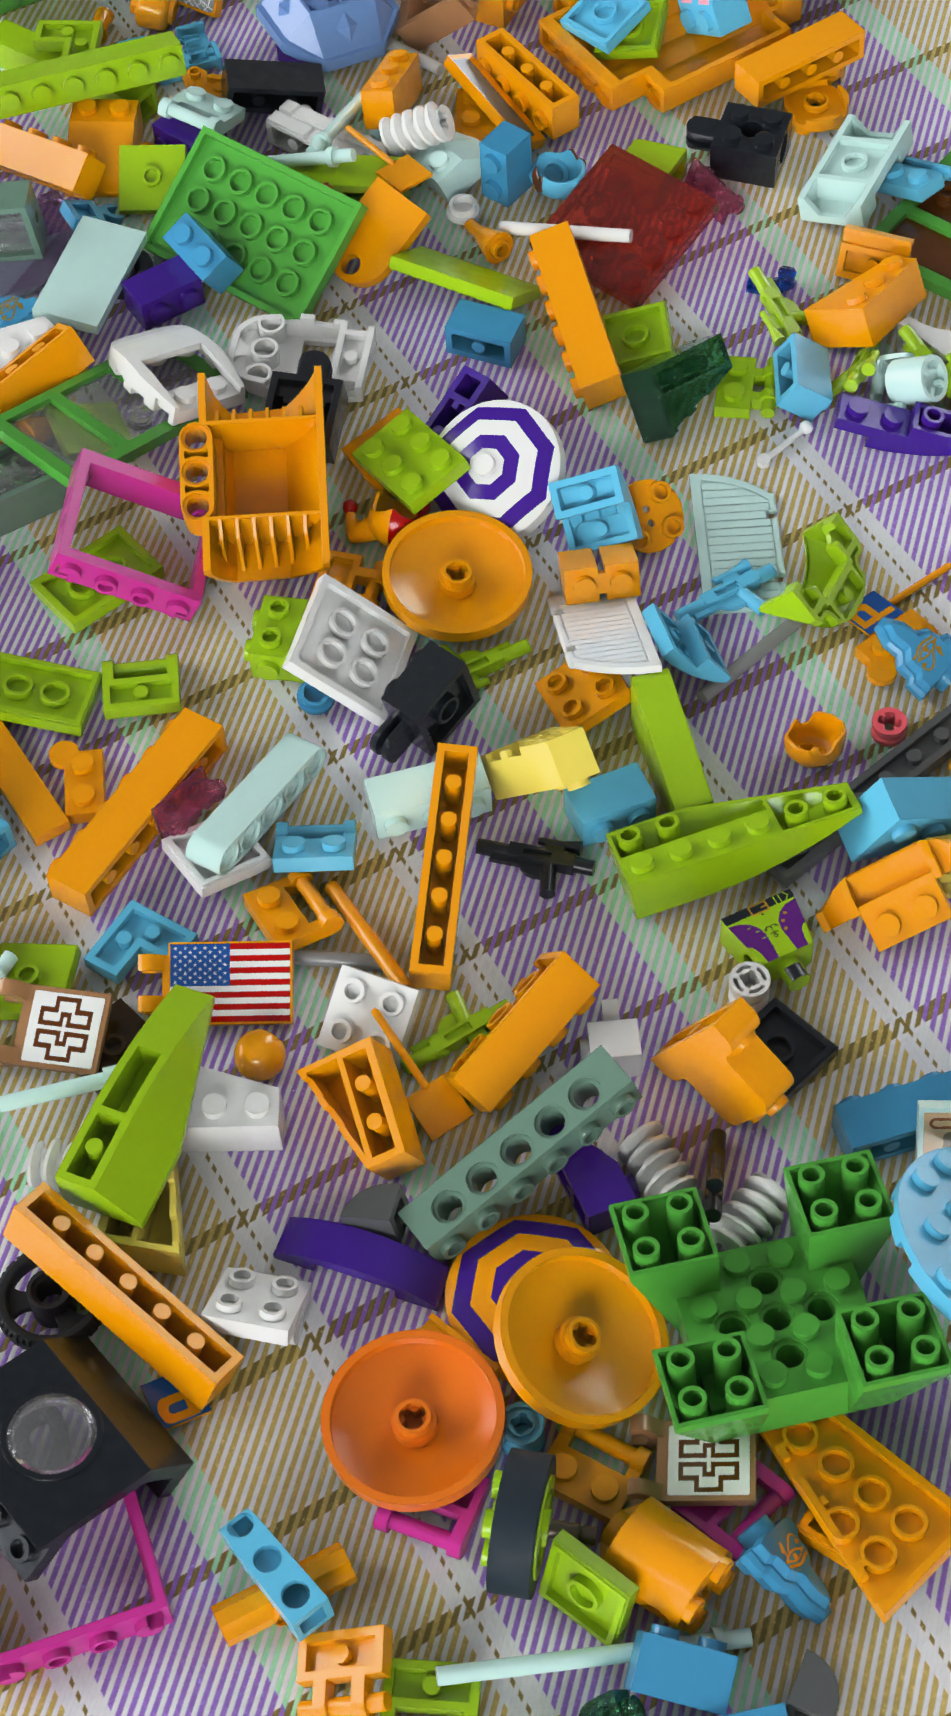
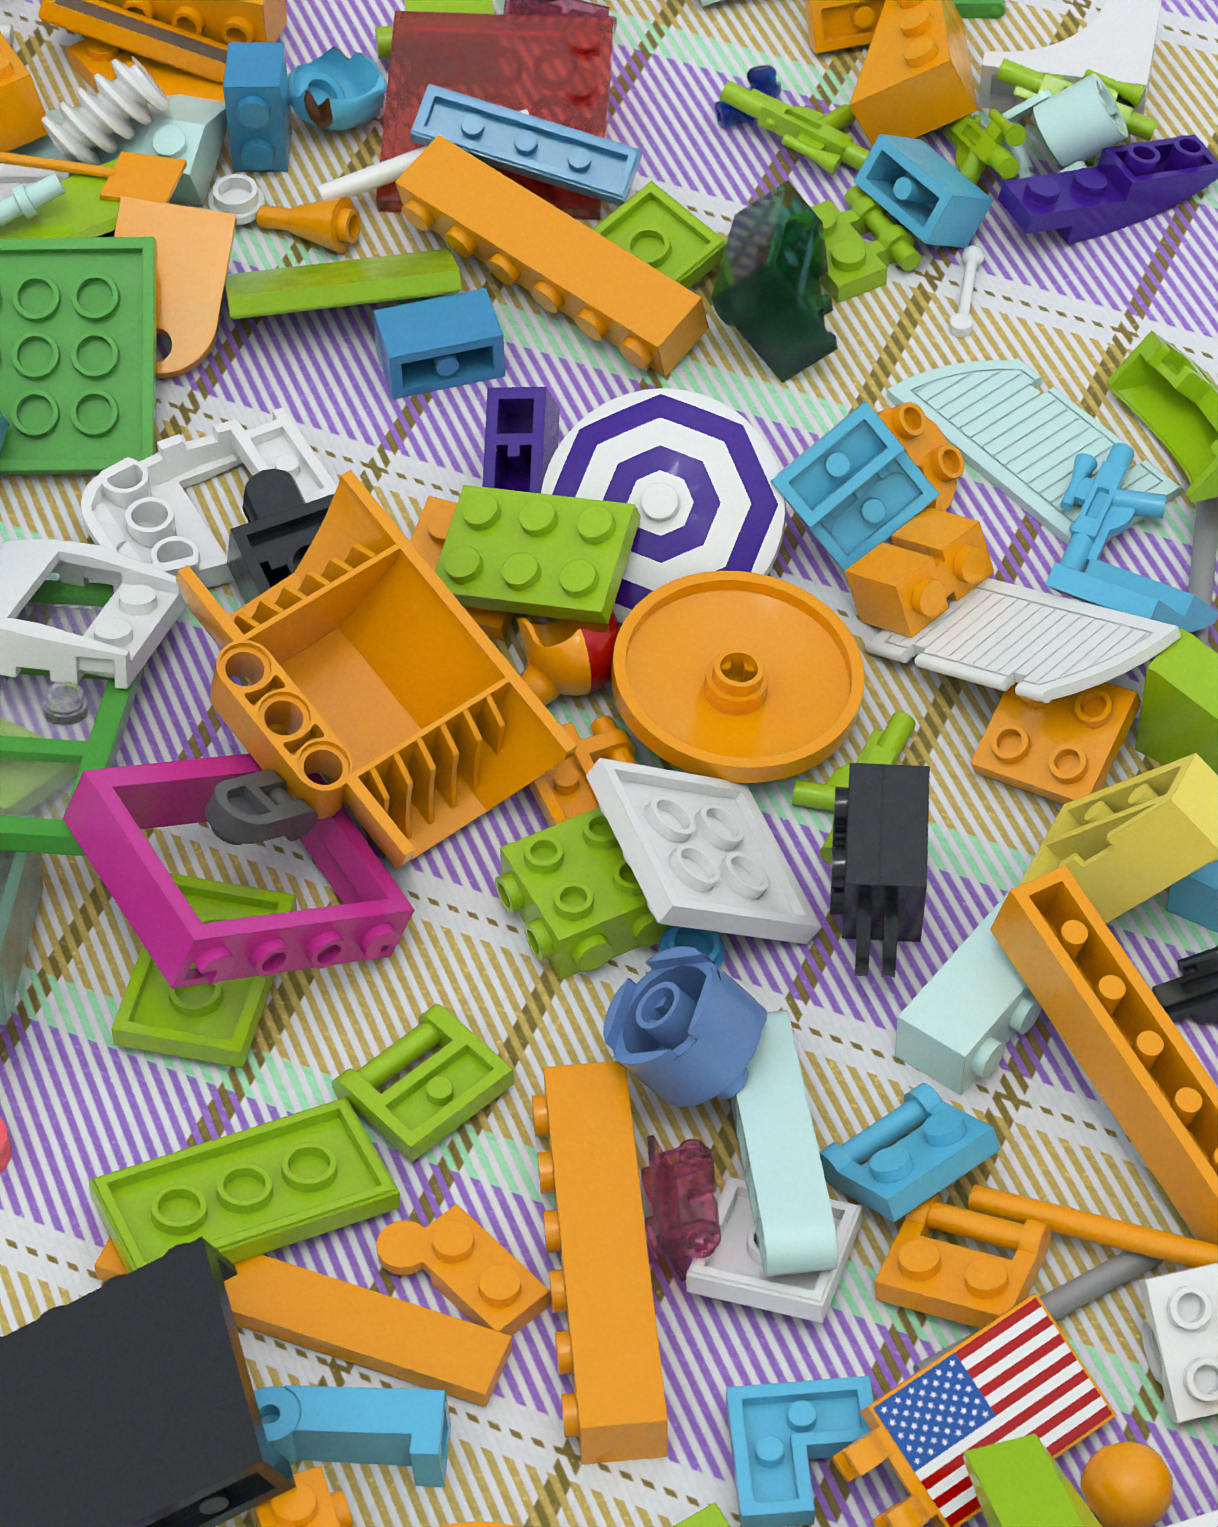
camera: 40 degrees left, 5 degrees down
(144, 506) = (257, 810): none -> dark grey plate
(253, 725) = (685, 1028): none -> medium blue brick
(614, 249) = (528, 145): none -> tile

